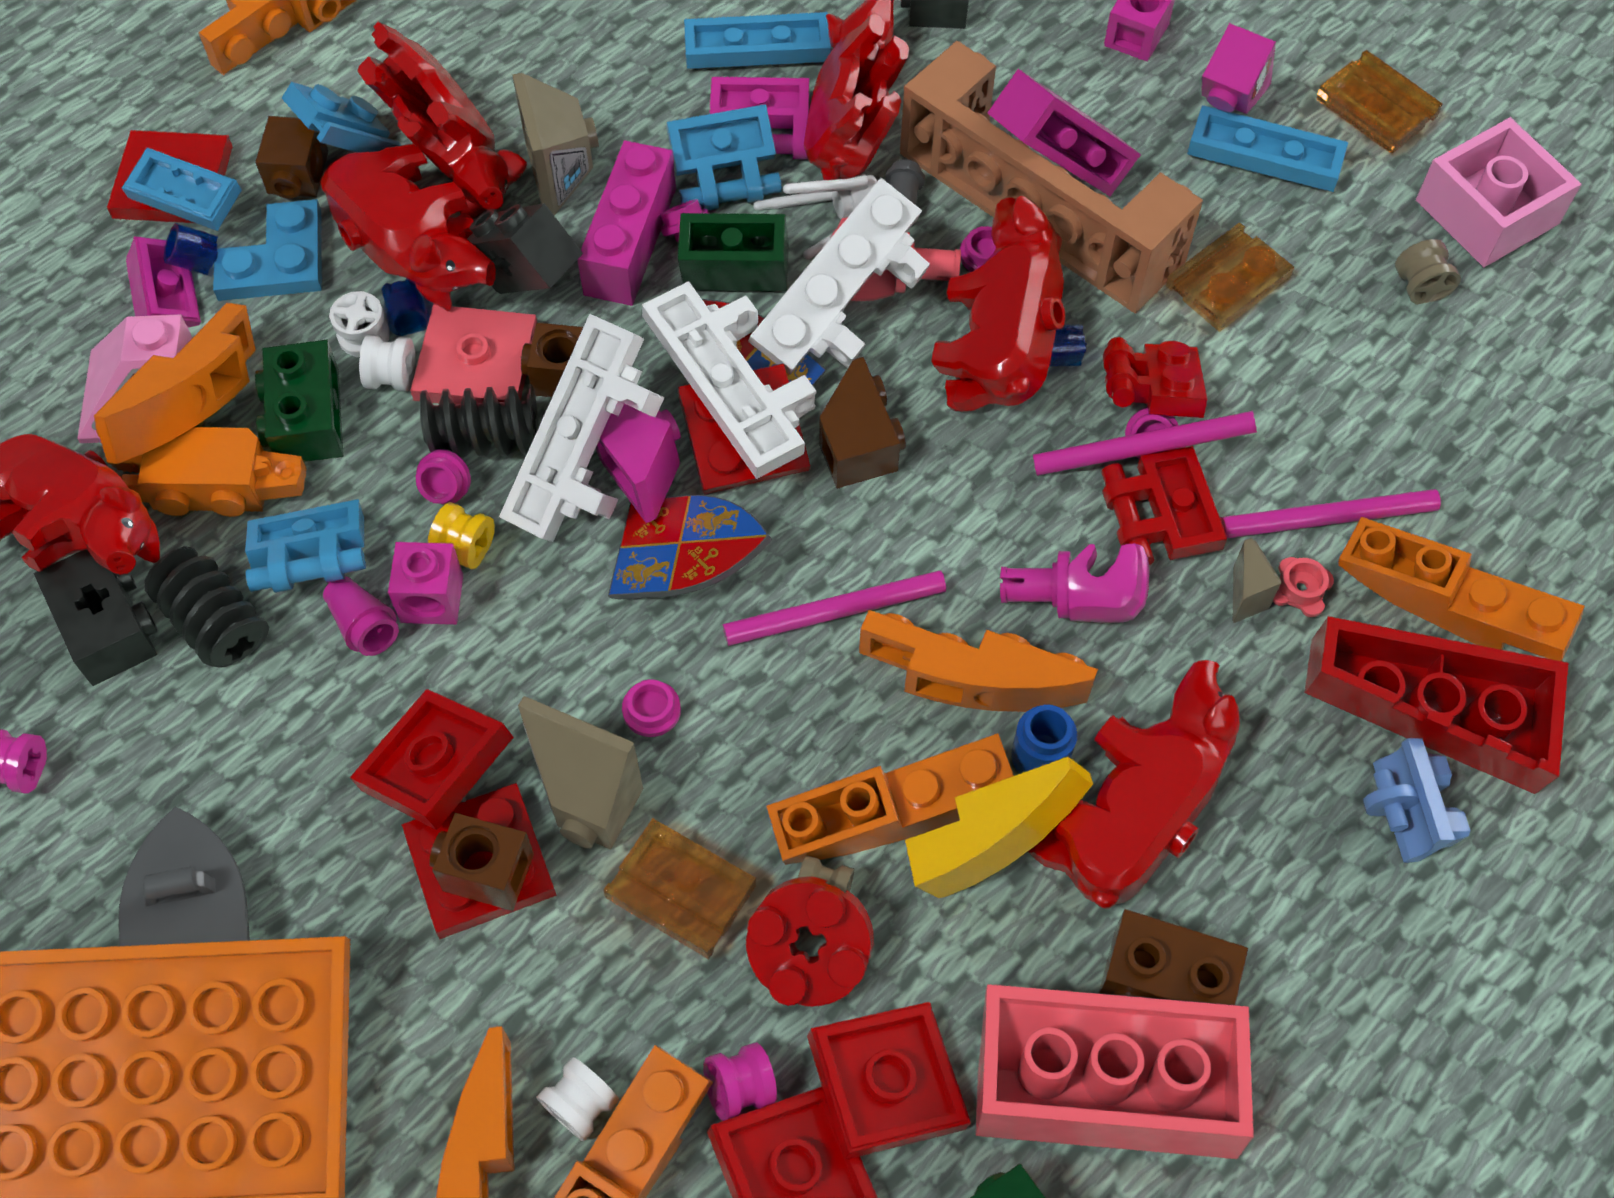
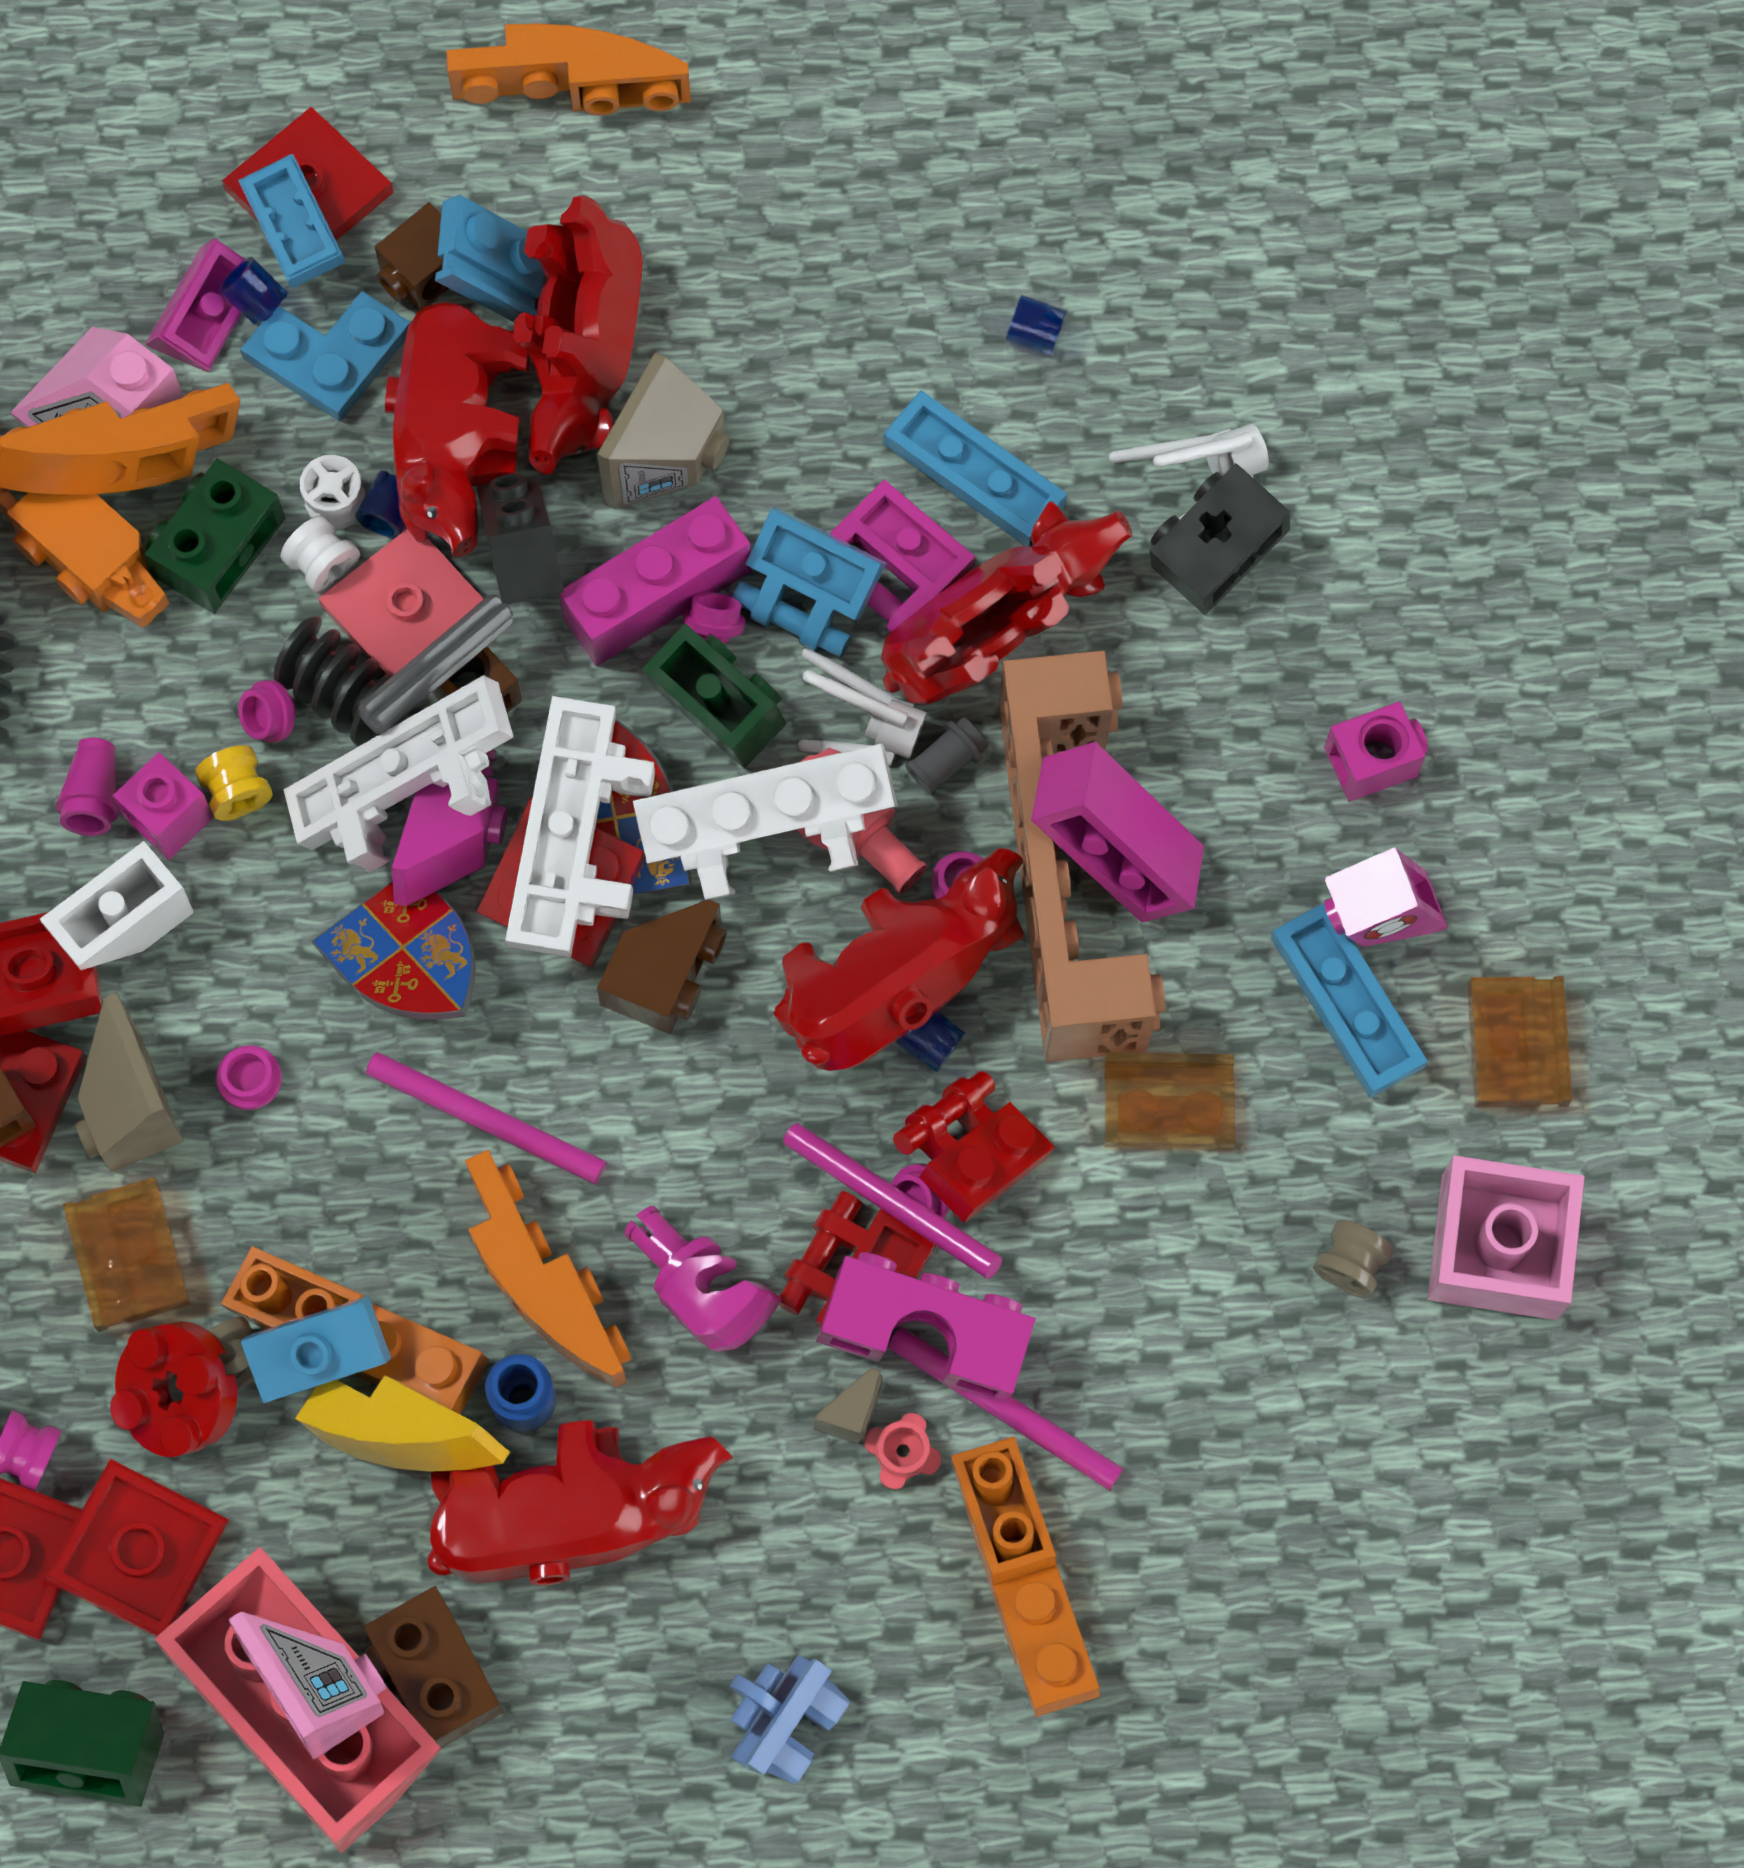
camera: 40 degrees right, 10 degrees up
(305, 546) = (106, 671): dark azure plate -> none
(462, 659) = (119, 910): none -> white slope
(539, 351) = (435, 664): none -> dark grey axle
(889, 822) = (315, 1349): none -> dark azure plate
(1133, 1034) = (312, 1680): none -> bright pink slope
(1287, 471) = (982, 1337): none -> dark pink arch
(1461, 698) = (899, 1655): red wedge -> none

